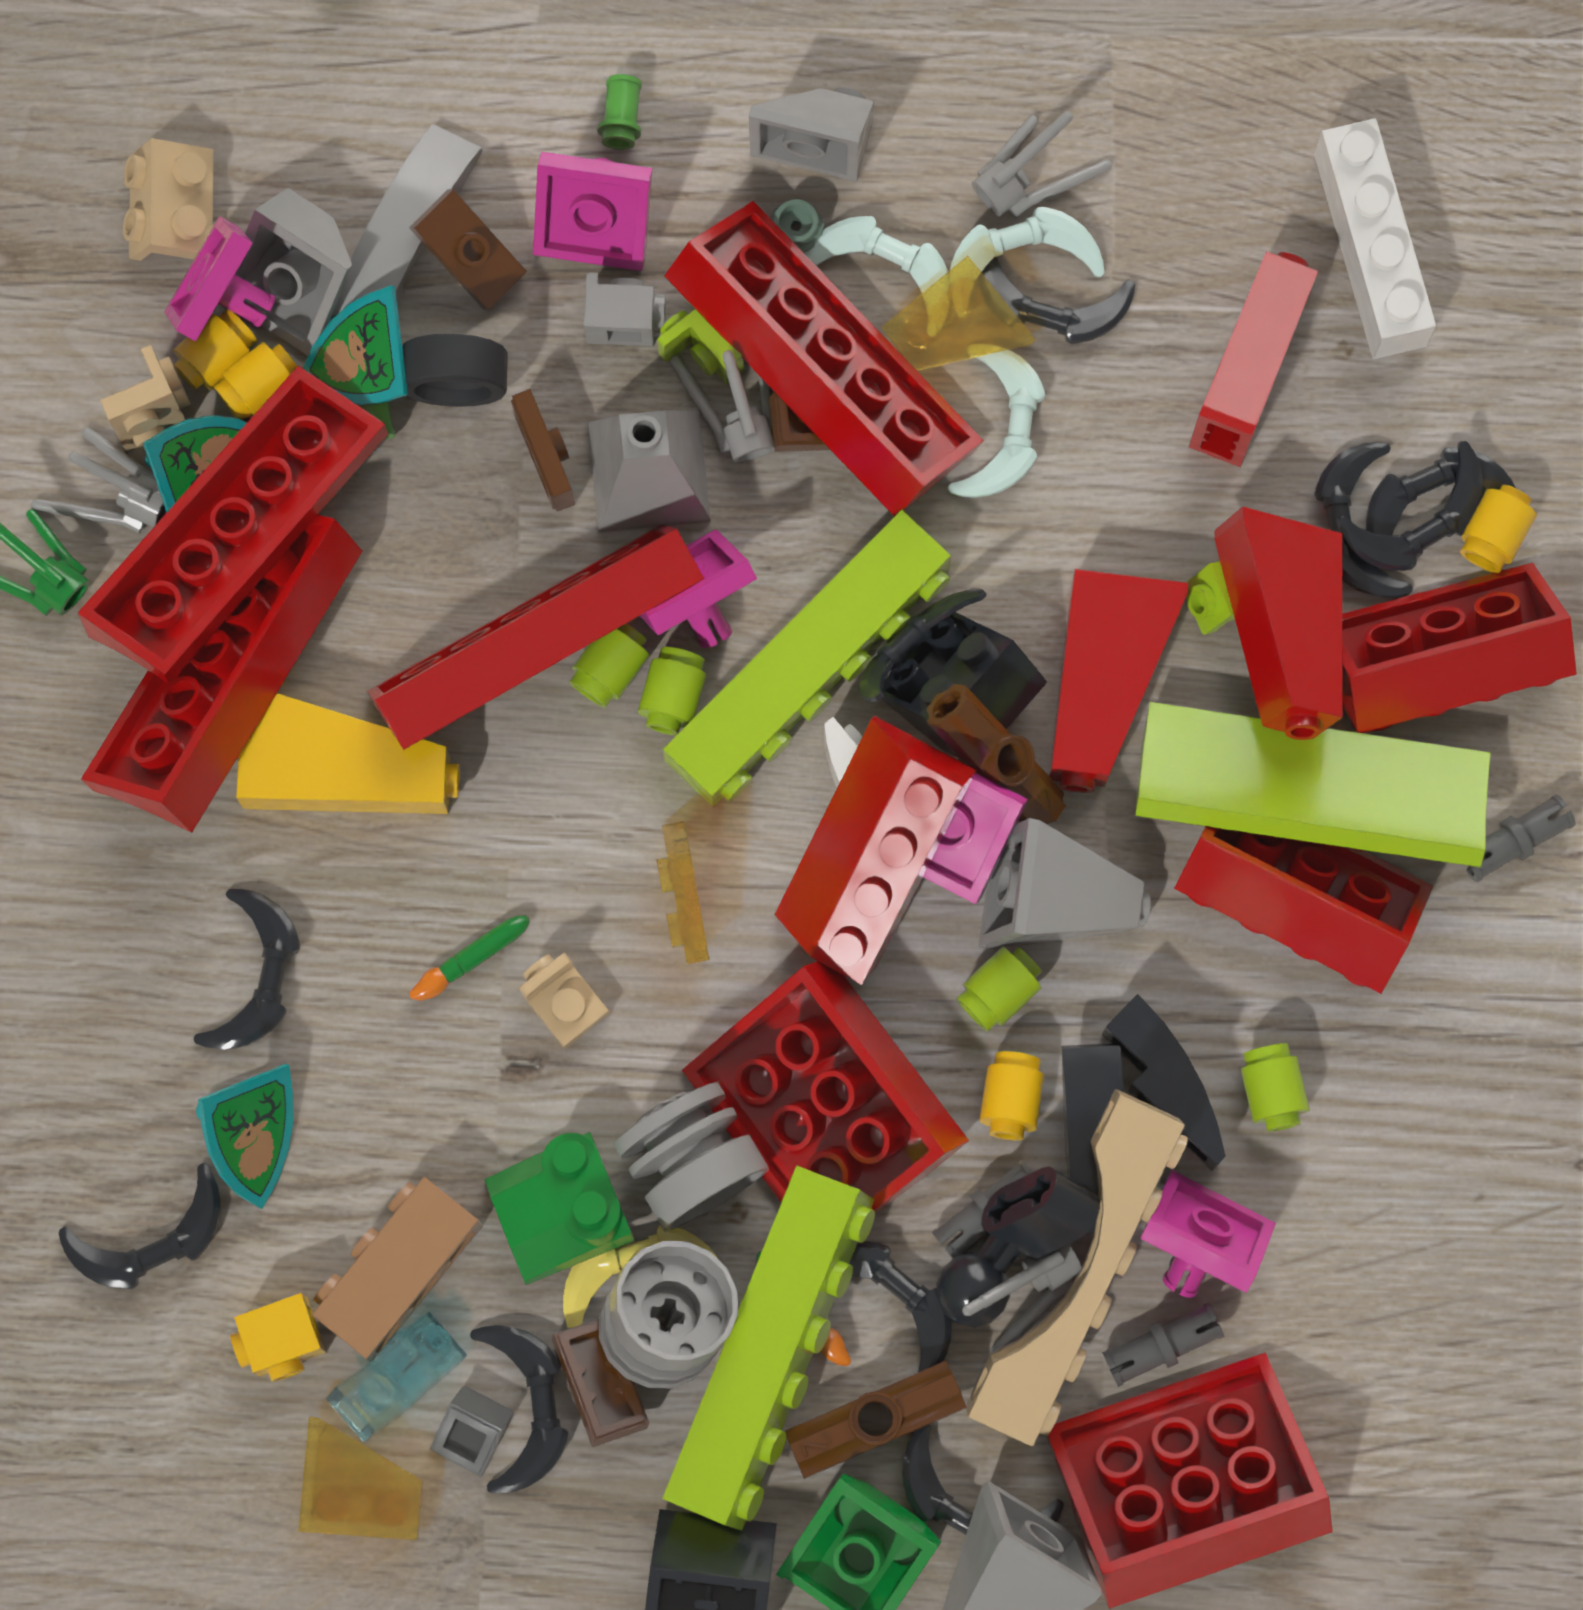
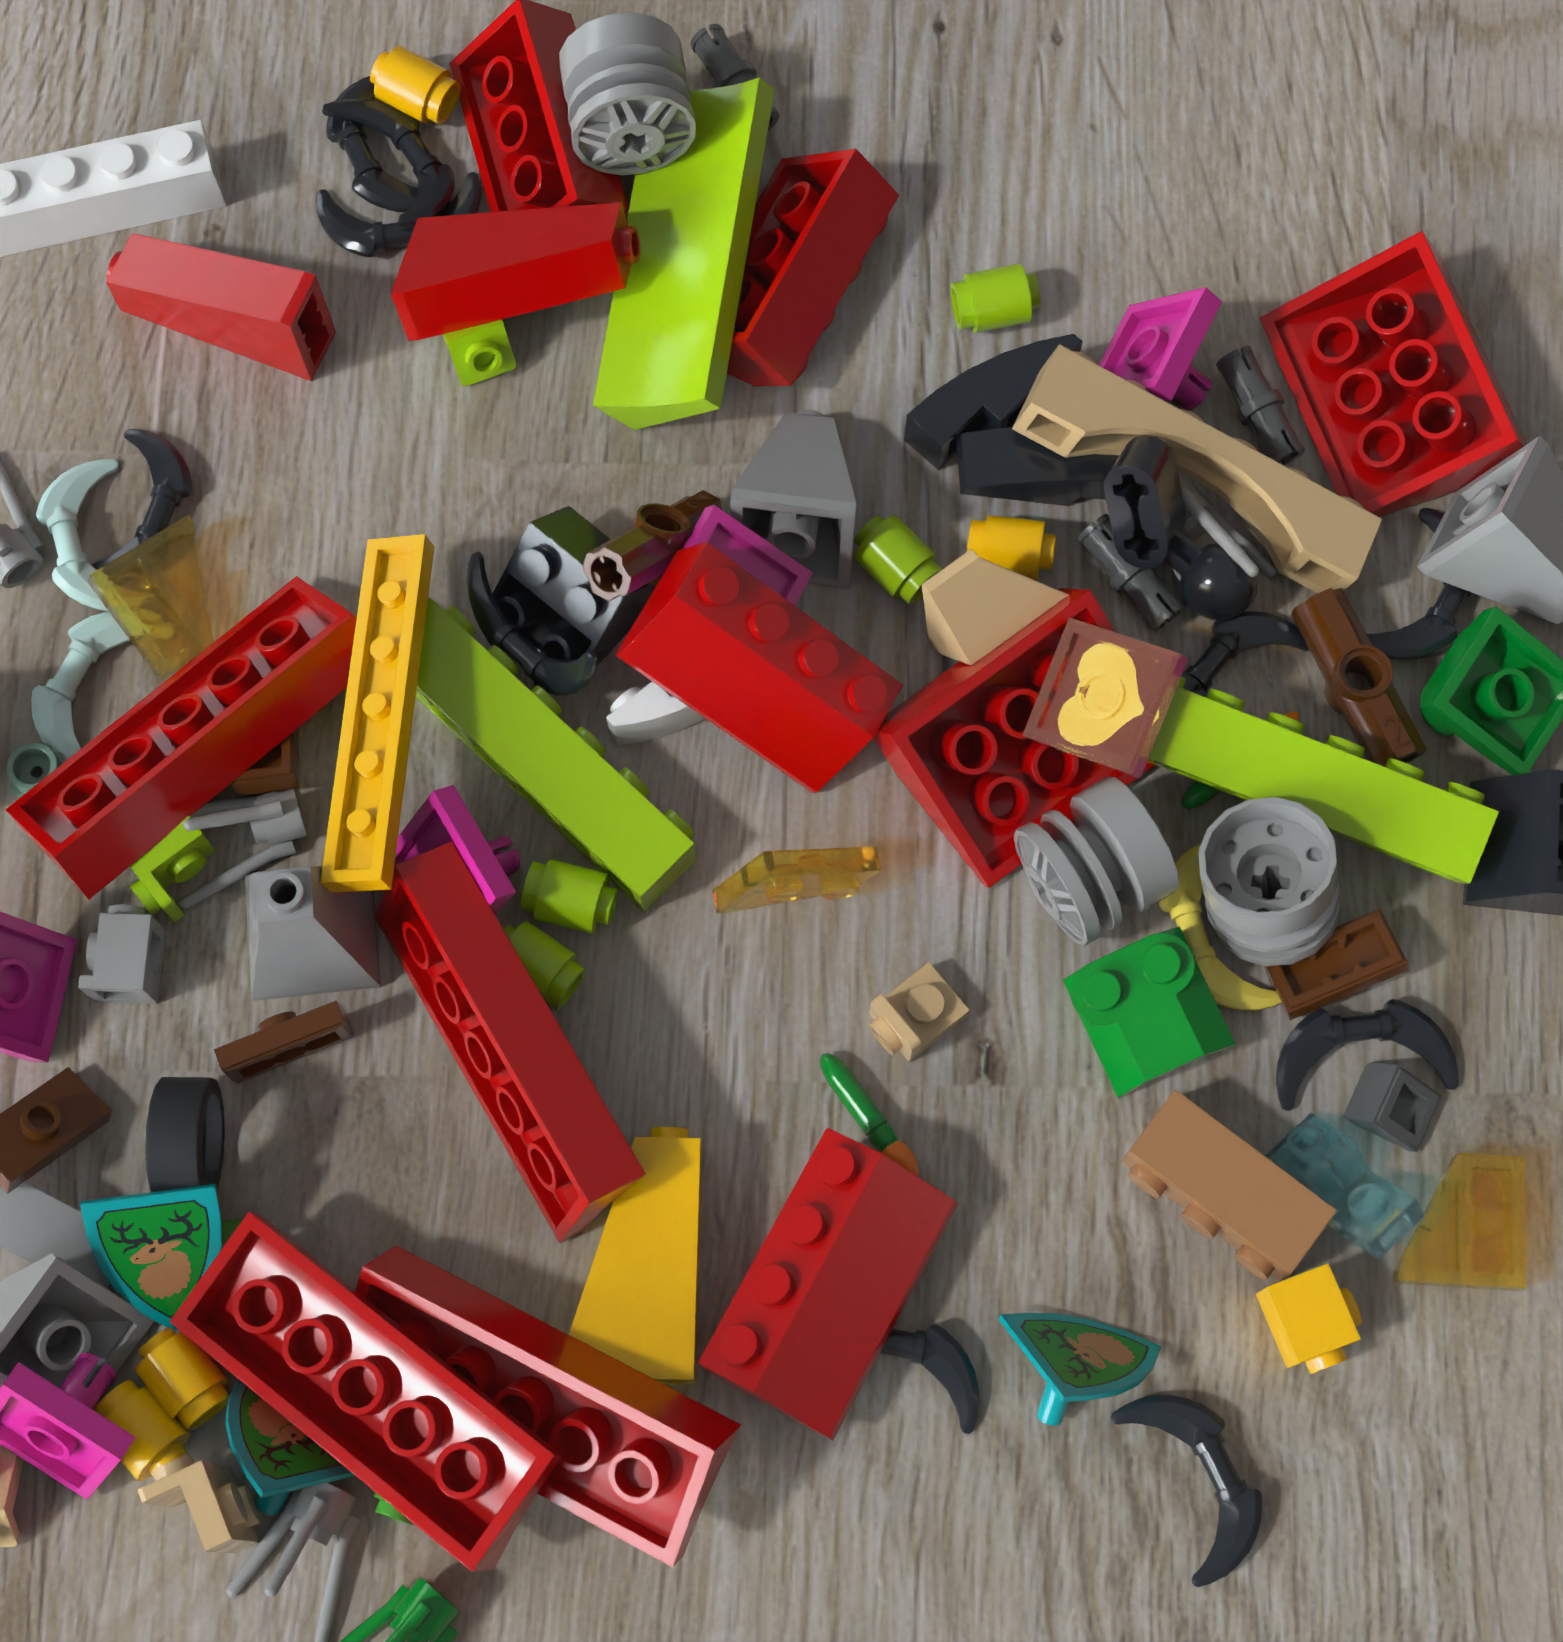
camera: 90 degrees left, 5 degrees down
(317, 914) = (828, 1283): none -> red slope
(827, 511) = (378, 715): none -> yellow plate
(835, 1161) = (1105, 697): none -> tile
(932, 1057) = (980, 606): none -> tan slope
(1016, 455) = (312, 544): light aqua piece -> none
(1109, 657) = (555, 452): red slope -> none
(1458, 720) = (627, 94): none -> light grey wheel

